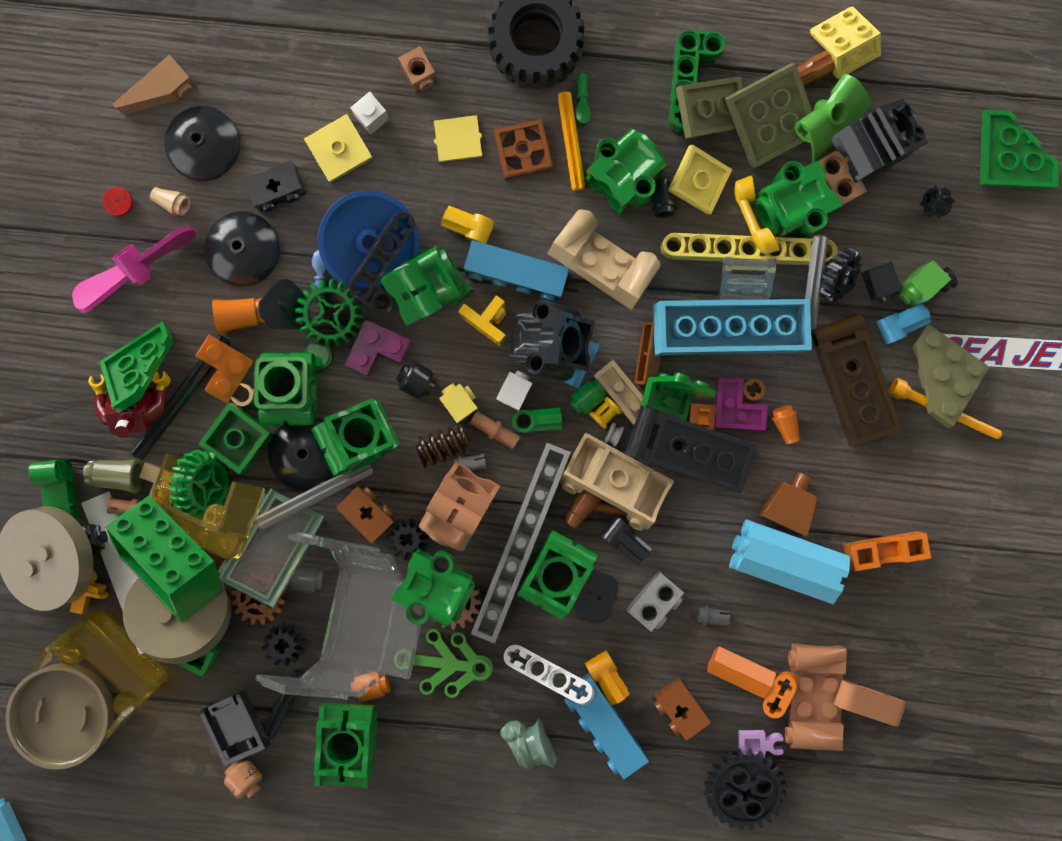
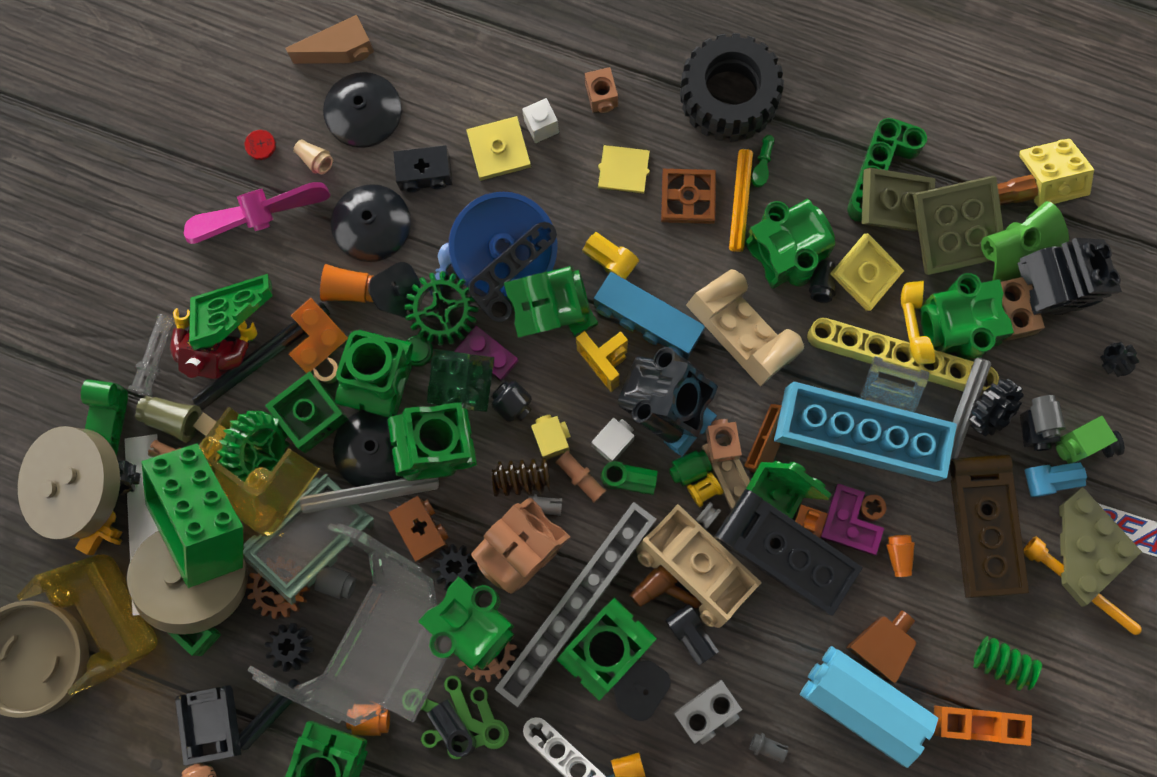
camera: 25 degrees right, 10 degrees down
(77, 436) = (163, 324): none -> clear pin
(365, 374) = (460, 378): none -> clear green bracket
(441, 672) = (450, 727): none -> black piece
(611, 379) = (721, 453): none -> nougat brick
(886, 272) = (1047, 416): none -> dark grey brick
(896, 492) = (1008, 663): none -> green piece

